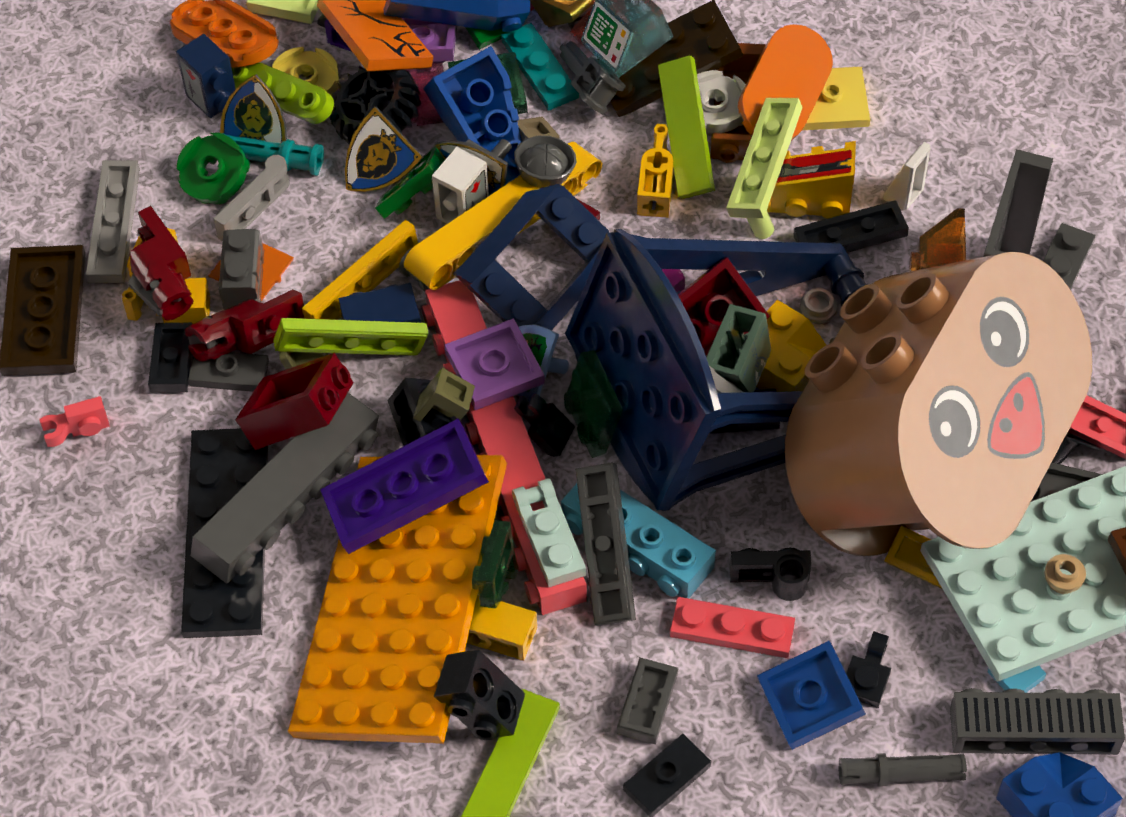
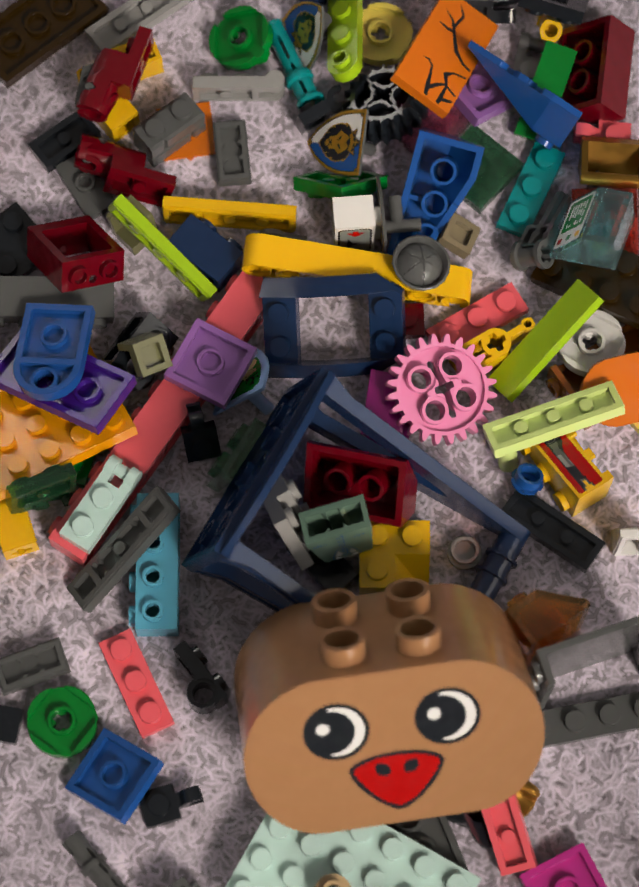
camera: 50 degrees right, 15 degrees up
(306, 243) = (231, 153): none -> dark grey plate
(330, 162) = (315, 114): none -> black plate
(368, 465) = (53, 345): none -> blue plate
(619, 172) = (488, 312): none -> coral plate
(666, 207) = (468, 378): none -> bright pink gear
(711, 728) = (42, 724): none -> green plate
(796, 215) = (527, 479): none -> blue plate

